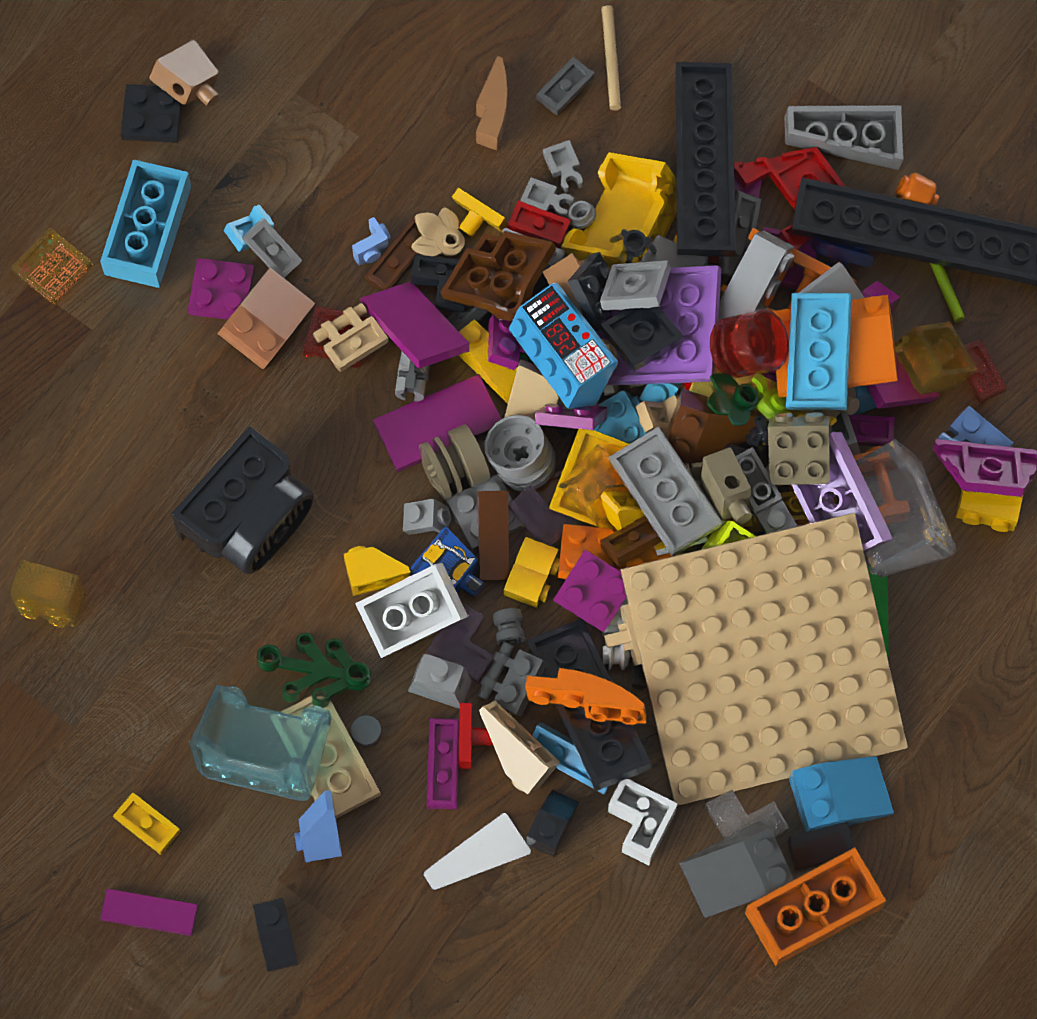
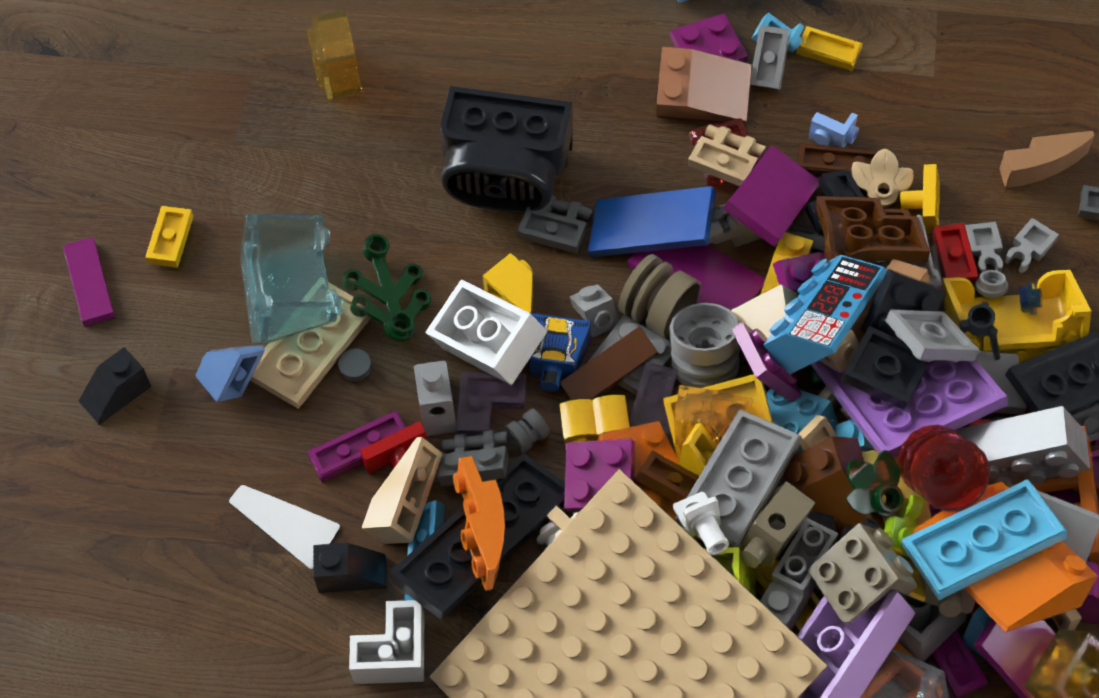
camera: 65 degrees right, 10 degrees down
(285, 196) = (829, 48): none -> yellow tile
(332, 508) = (554, 229): none -> dark grey plate
(379, 429) = (652, 222): none -> blue tile
(613, 195) = (1030, 299): none -> plate
(696, 533) = (702, 518): none -> white bracket

